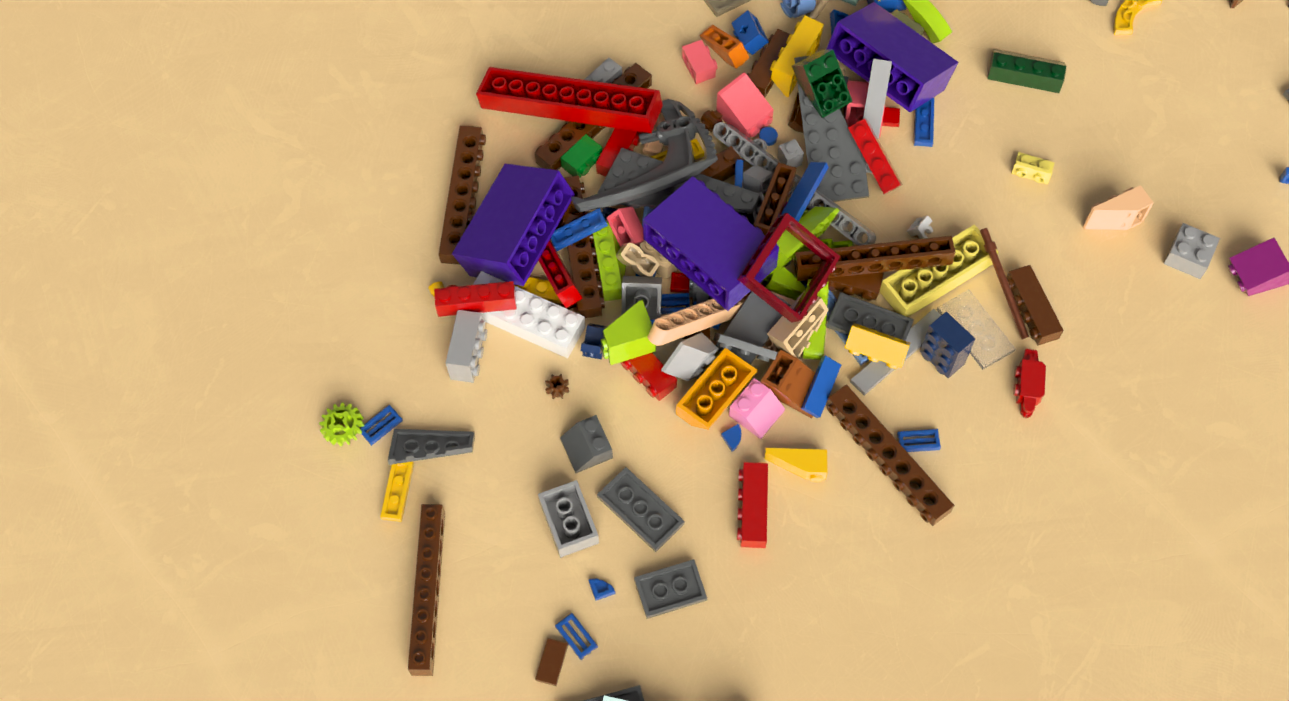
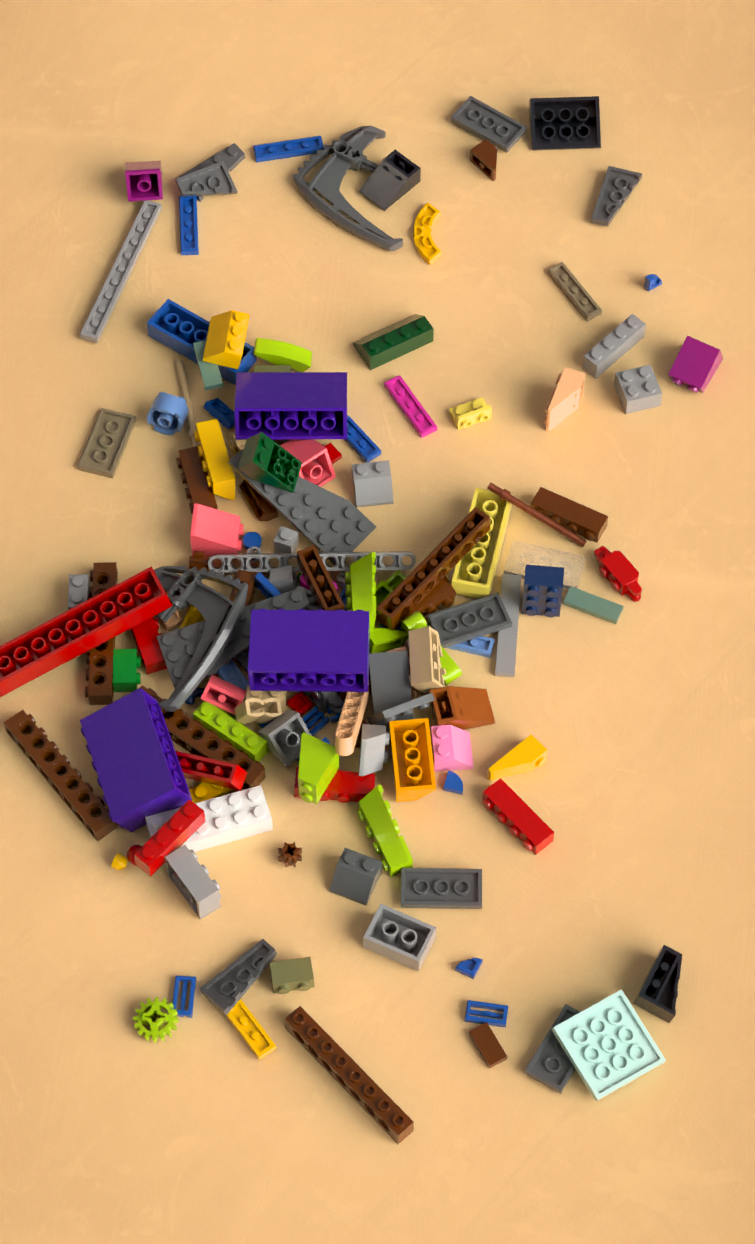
camera: 45 degrees left, 5 degrees down
(465, 477) = (292, 975): none -> olive brick
(578, 229) = (189, 723): blue tile -> none
(592, 345) = (284, 798): dark blue brick -> none
(640, 430) = (384, 832): none -> lime wedge
(670, 589) = (518, 923): dark grey plate -> none
(699, 62) = (139, 524): coral brick -> none
(725, 46) = (150, 495): orange slope -> none
(749, 32) = (149, 467): blue brick -> none
(805, 189) = (334, 559): blue tile -> none
(819, 280) = (366, 626): dark red window -> none
(821, 386) = (482, 694): blue tile -> none
(875, 156) = (355, 492): red brick -> none
(876, 96) = (321, 455): tile -> none
(877, 346) = (493, 631): yellow brick -> none
(900, 458) = (583, 698): reddish brown brick -> none
(905, 159) = (372, 483): none -> light grey slope
(915, 433) = (573, 687): blue tile -> none
(919, 226) = (434, 521): white tile -> none
(984, 391) = (593, 605): none -> sand green tile
(990, 128) = (410, 406): none -> dark pink tile
(1205, 202) = (614, 346): none -> light grey brick
(1214, 138) = (574, 291): none -> dark tan tile

